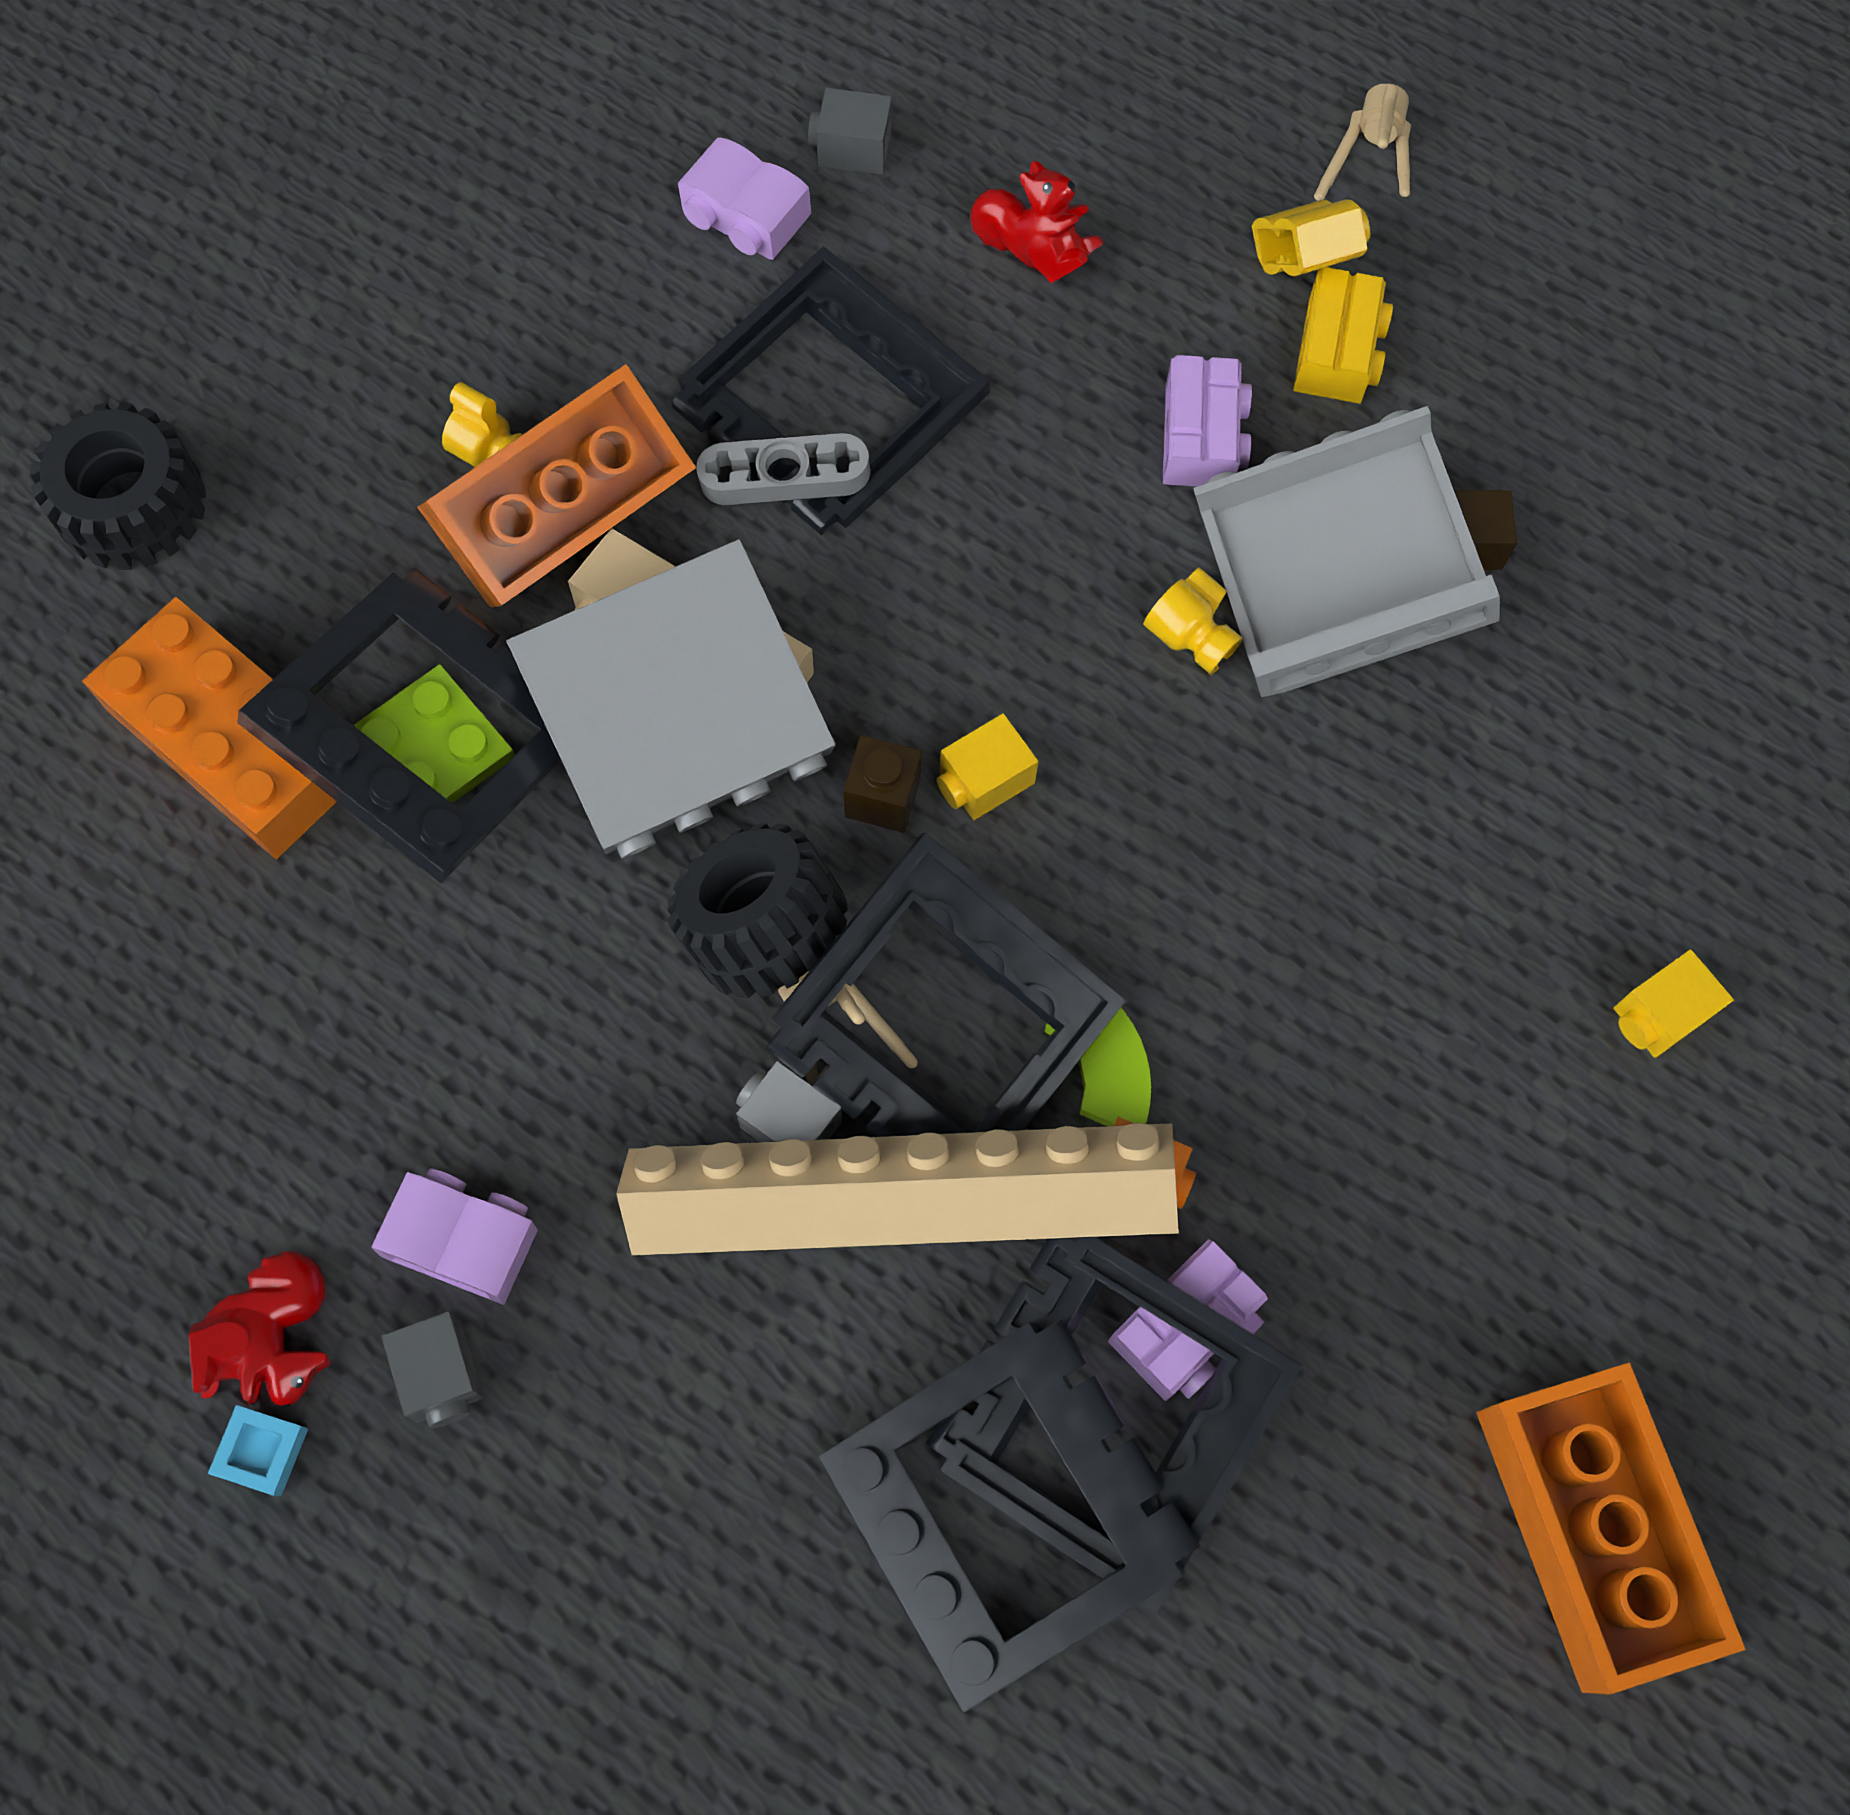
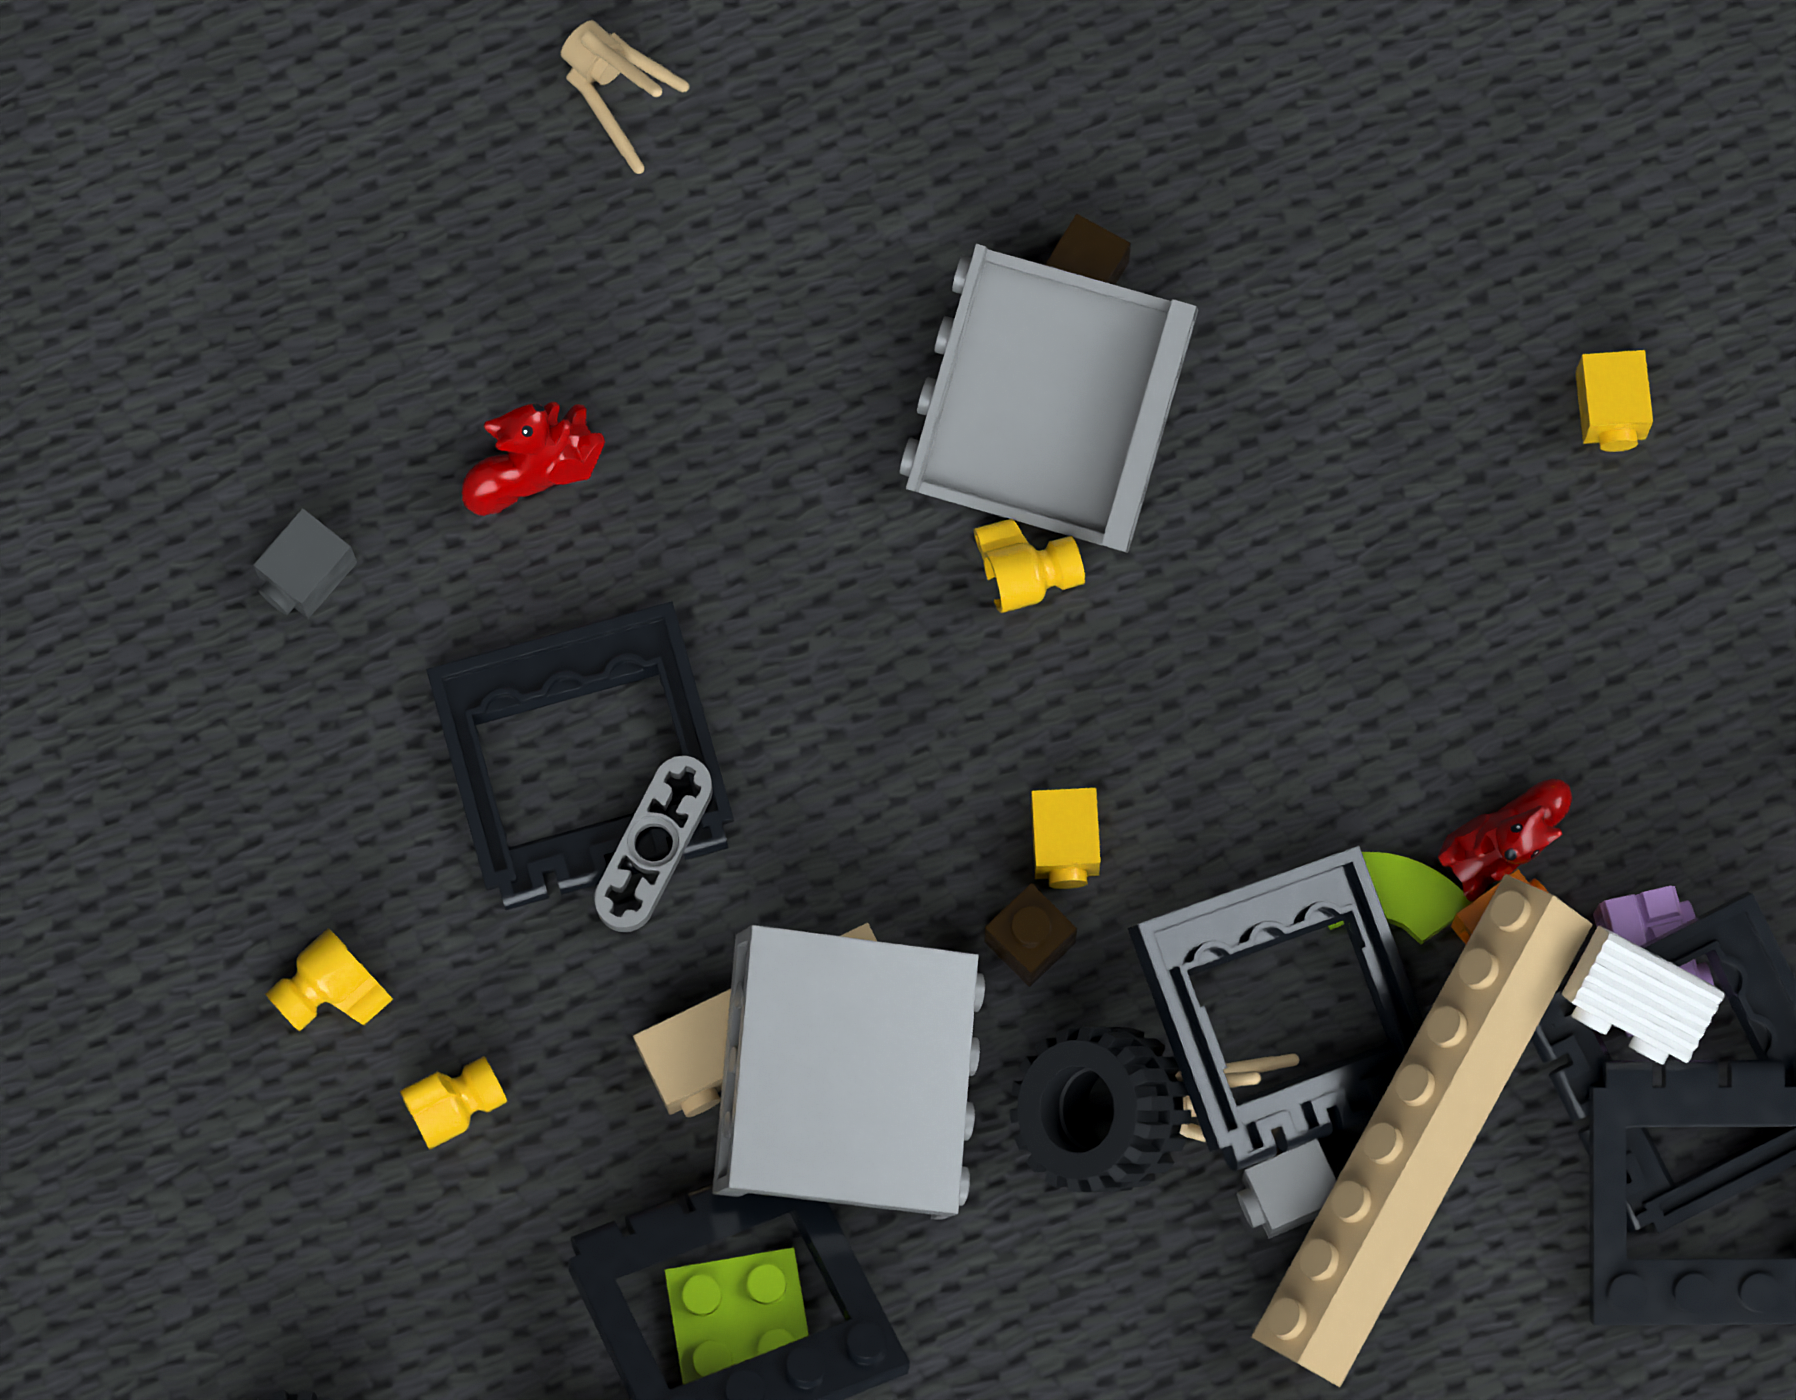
camera: 55 degrees left, 5 degrees up
(542, 311) = (332, 976): none -> yellow piece
(557, 487) = (562, 1062): orange brick -> none
(744, 198) = (318, 714): lavender brick -> none
(1137, 1314) = (1641, 995): none -> white brick
(1204, 420) = (832, 432): lavender brick -> none
(1216, 1126) = (1507, 838): none -> red animal
(1311, 237) = (706, 217): yellow brick -> none
(1341, 335) = (816, 251): yellow brick -> none

